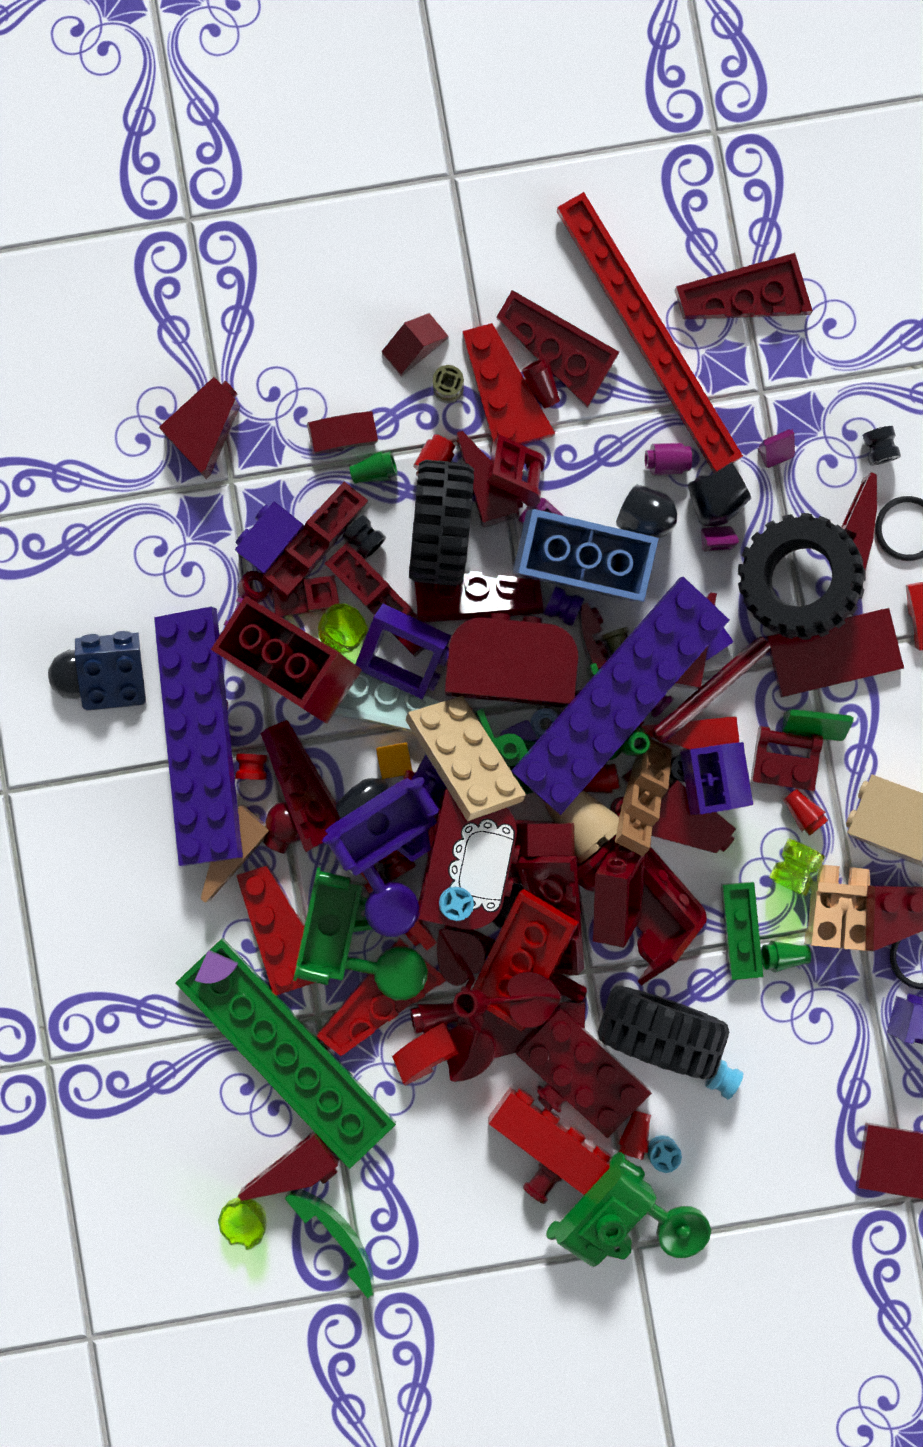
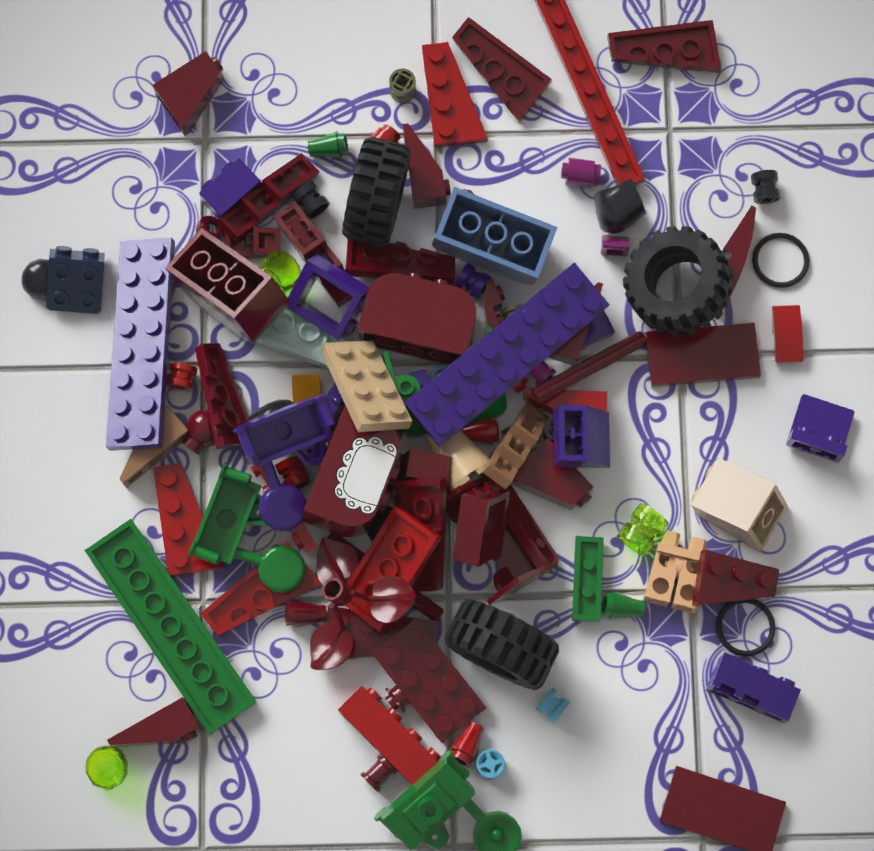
camera: 10 degrees right, 10 degrees down
(215, 968) = (121, 541): medium lavender tile -> none
(307, 1207) = (203, 825): green slope -> none
(342, 431) = (305, 112): dark red slope -> none
(414, 342) = (379, 48): slope -> none
(423, 1053) = (287, 643): red slope -> none
(458, 908) = (337, 492): medium azure wheel -> none
(507, 469) = (441, 157): dark red plate -> none
(541, 382) = (481, 95): dark red cone -> none
(628, 746) = (511, 405): green cone -> none
(647, 512) = (558, 211): black piece -> none
(778, 448) = (676, 177): magenta slope -> none
(786, 769) = (646, 447): dark red plate -> none
(805, 812) = (657, 485): red cone -> none
(806, 723) = (678, 412): green slope -> none

